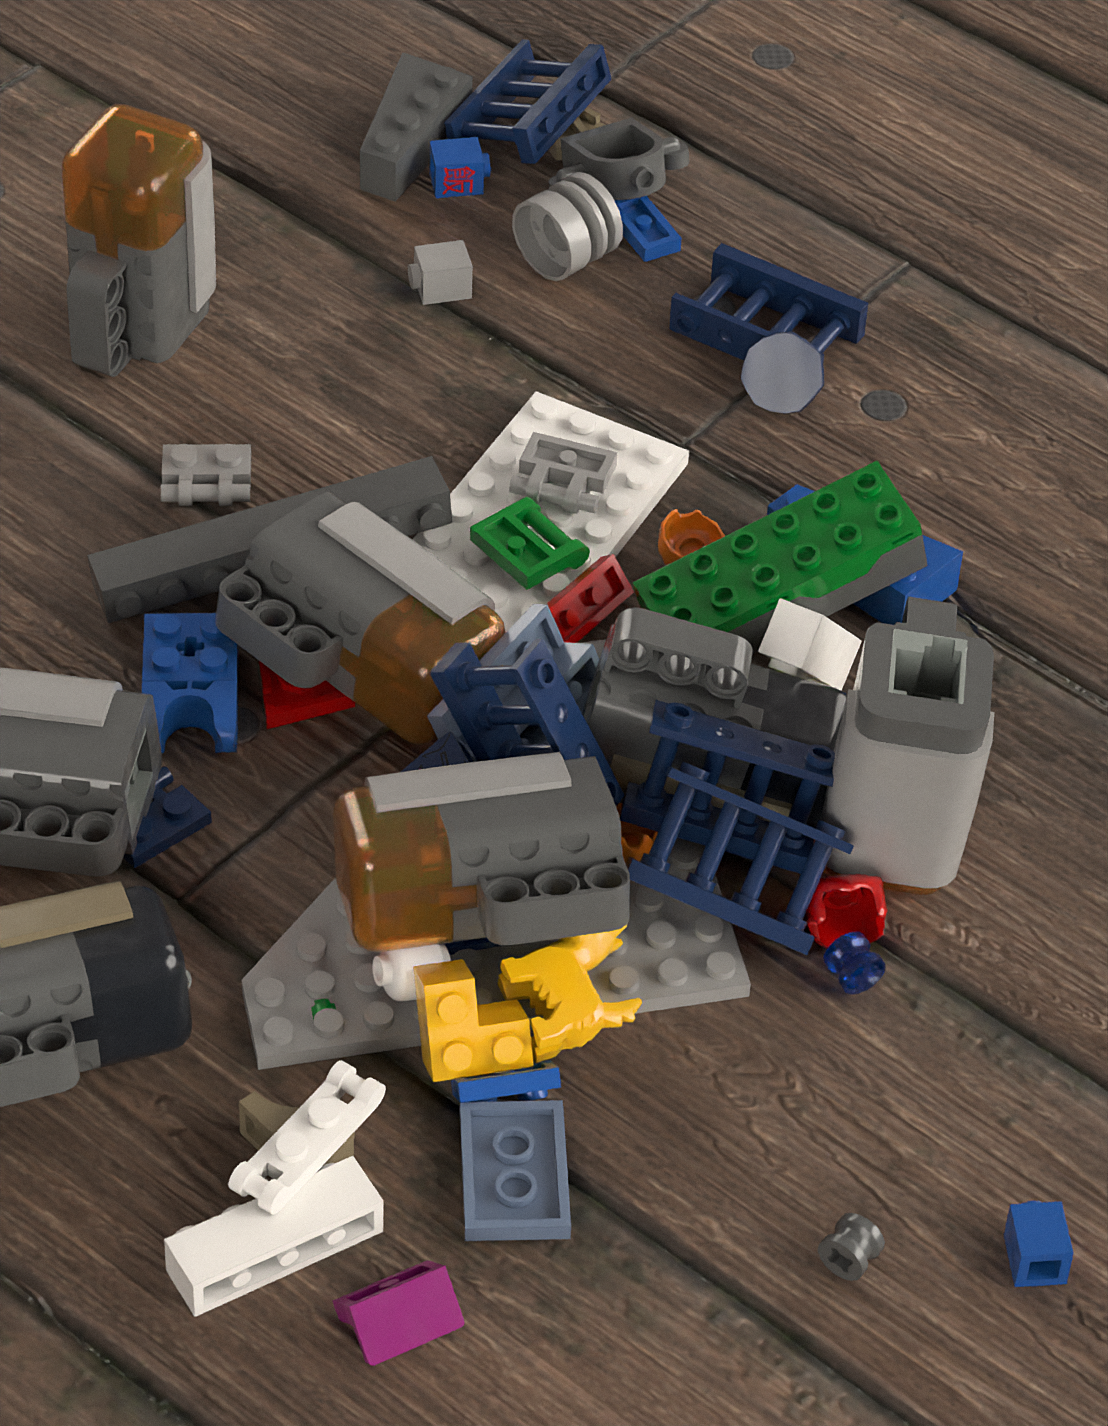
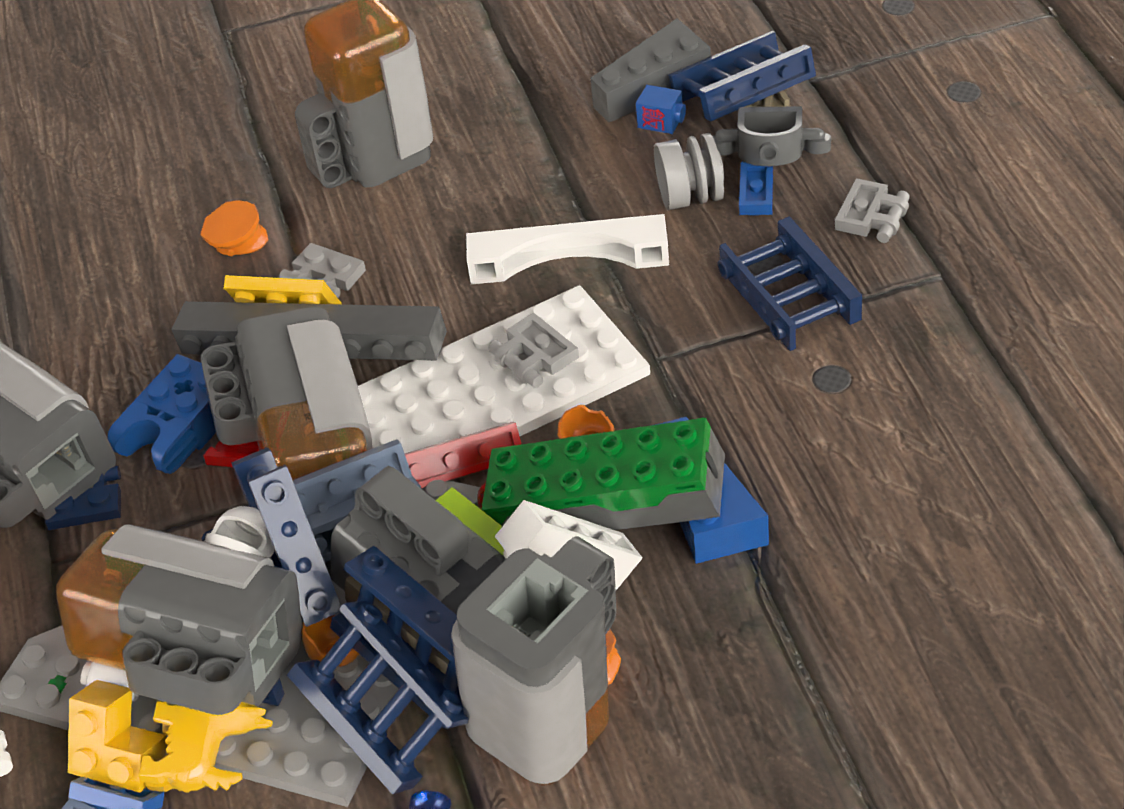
camera: 40 degrees right, 0 degrees up
(49, 456) = (234, 229): none -> orange hat
(206, 503) = (279, 290): none -> yellow plate
(441, 272) = (586, 180): light grey brick -> none
(485, 738) = (242, 531): none -> white helmet
(520, 550) = (454, 393): green plate -> none
(556, 324) = (630, 240): none -> white arch
(777, 214) = (862, 210): none -> light grey plate
(783, 372) = (755, 328): hat -> none
(847, 905) = (454, 769): red hair -> none

